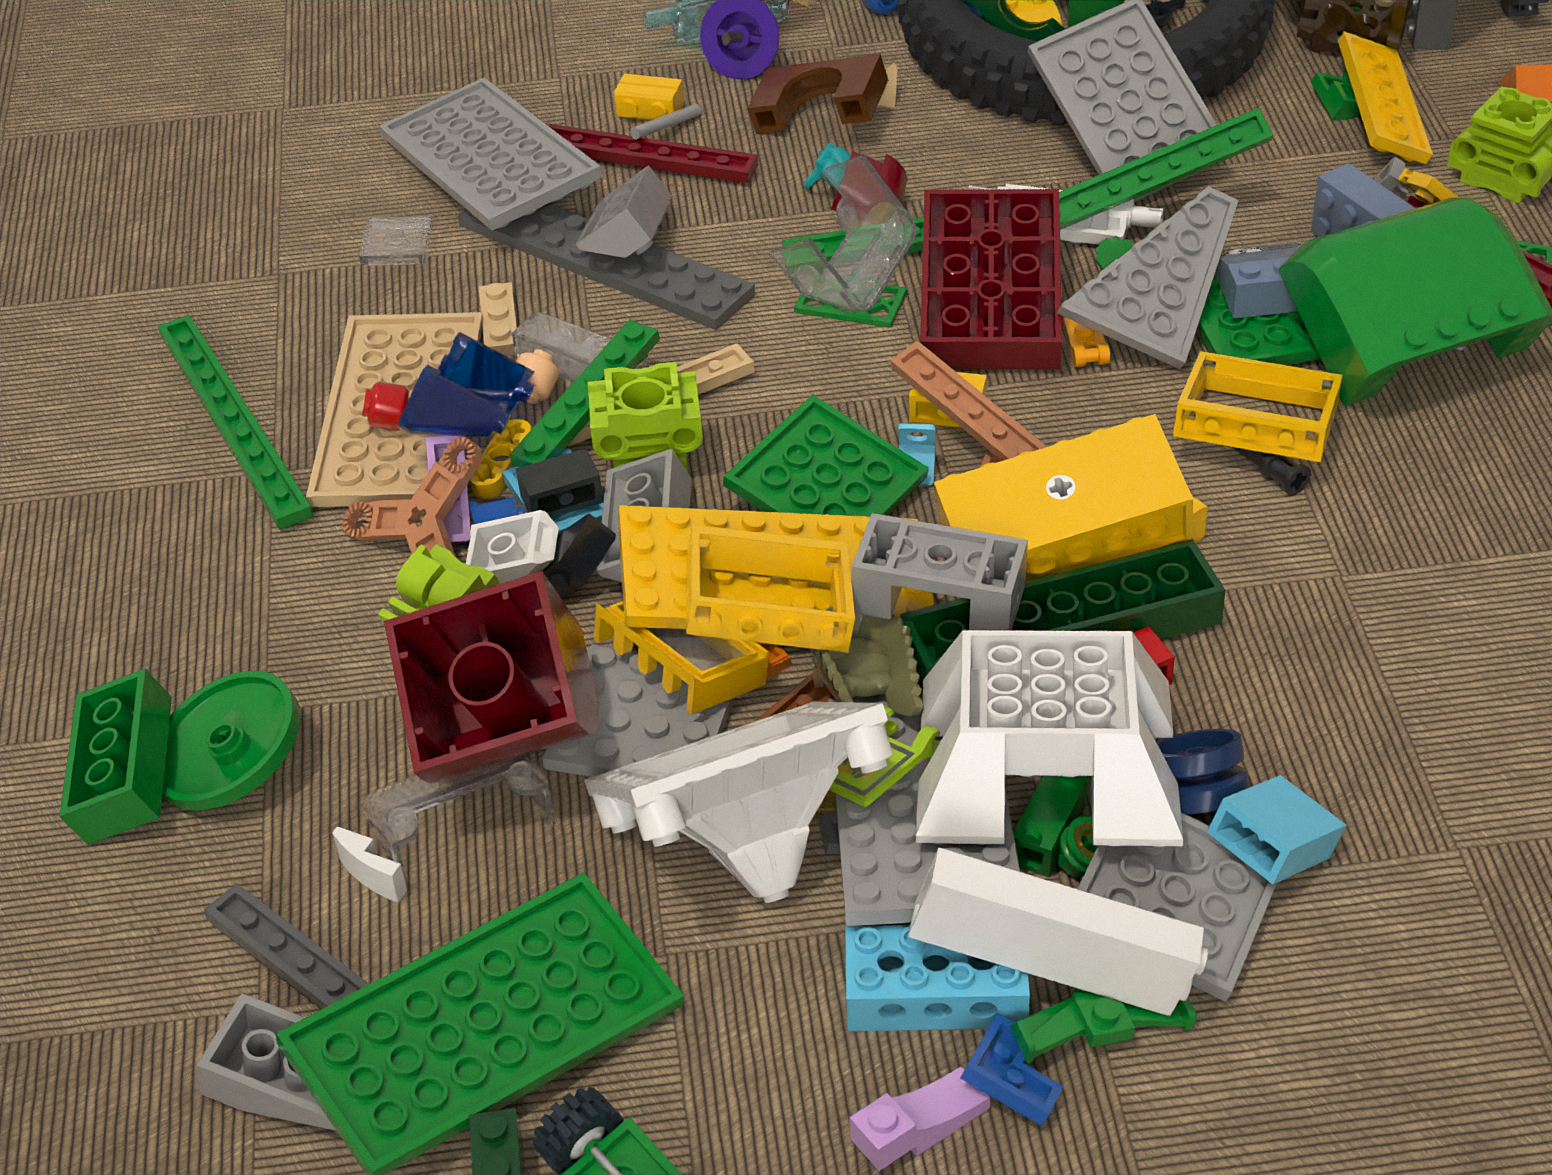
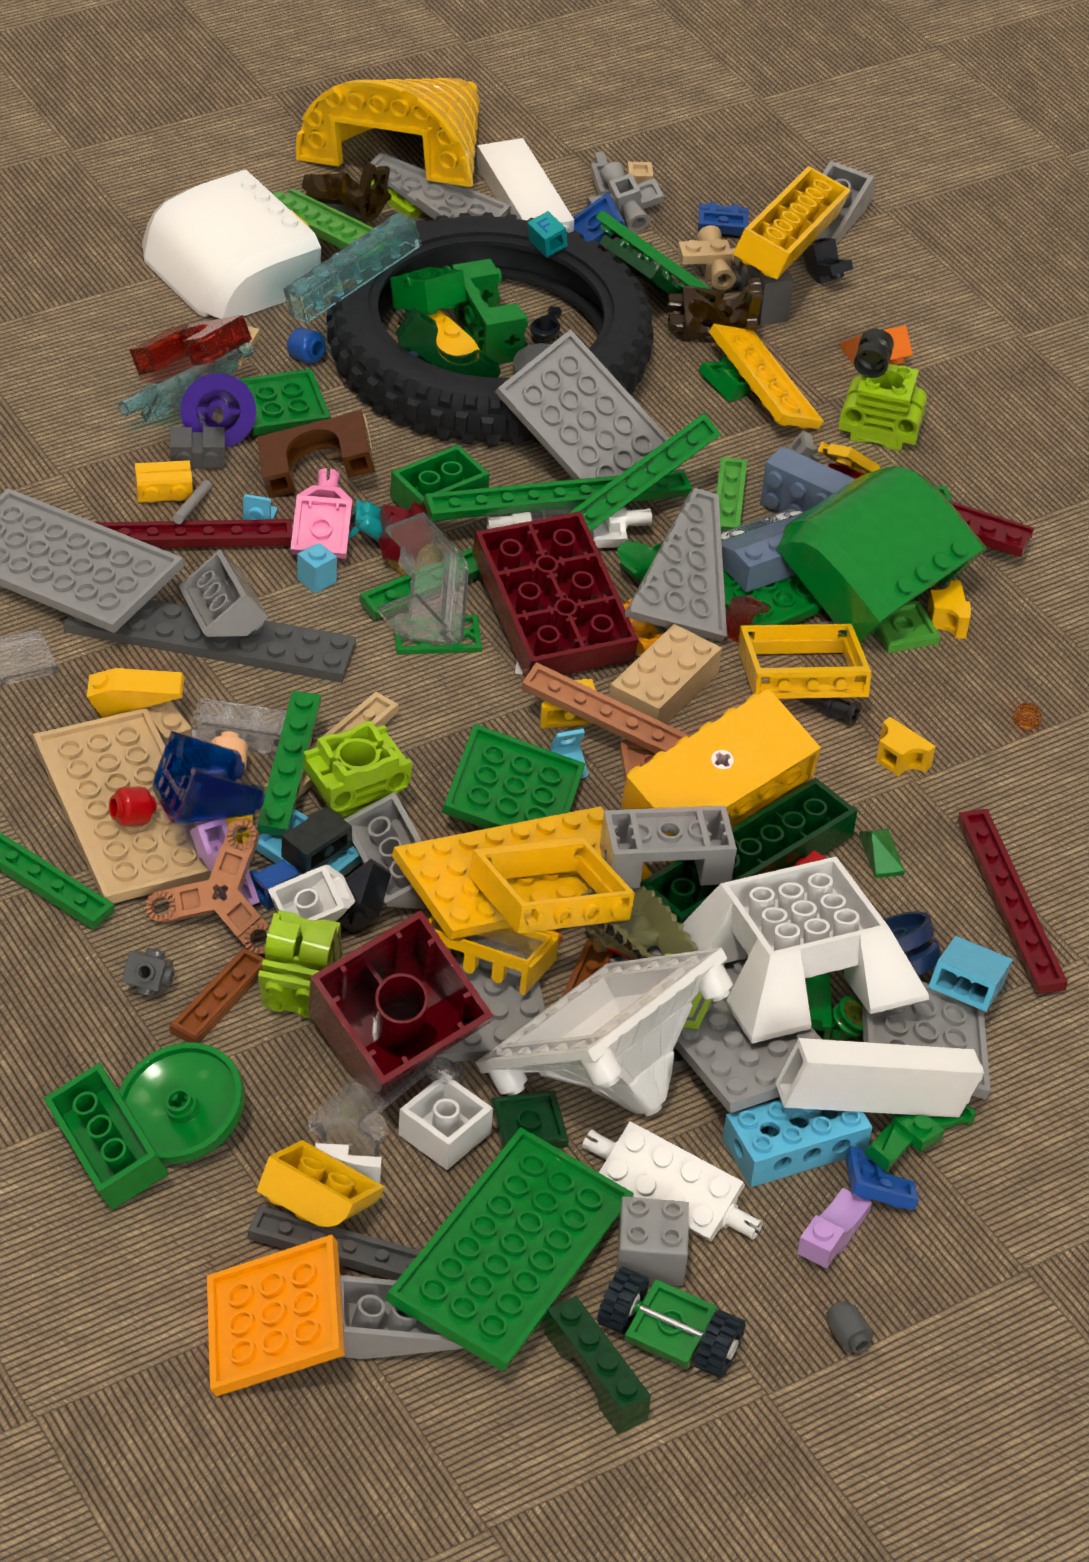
camera: 30 degrees left, 0 degrees up
(150, 1023) = (274, 1315): none -> light orange plate
(301, 587) = (149, 971): none -> dark grey brick
(302, 876) = (316, 1185): none -> yellow brick
(339, 644) = (218, 997): none -> dark orange tile
(470, 288) = (132, 689): none -> yellow slope
(506, 843) = (445, 1122): none -> white brick
(622, 868) = (533, 1112): none -> dark green tile
(662, 1064) = (654, 1238): none -> light grey piece
(706, 74) = (203, 448): none -> dark grey brick
(726, 137) = (258, 508): none -> medium azure bracket
(740, 998) = (666, 1172): none -> white plate
(753, 206) = (316, 567): none -> medium azure brick
(783, 157) = (322, 516): none -> bright pink plate
(822, 38) = (286, 401): none -> green plate
(939, 145) = (440, 472): none -> green brick
(1032, 172) = (538, 496): none -> green plate
(1082, 391) = (668, 674): none -> tan brick
(1212, 337) = (742, 613): none -> clear red bracket
(1249, 653) = (881, 853): none -> green slope
(1275, 211) = (731, 491): none -> bright green plate
(1338, 533) = (903, 749): none -> yellow brick
(1391, 756) = (1012, 902): none -> dark red plate
(1420, 396) = (908, 629): none -> bright green tile
(1485, 384) = (950, 609): none -> yellow brick
(1504, 75) = (874, 353): none -> pearl dark grey wheel
(1529, 528) = (1027, 716): none -> clear orange plate

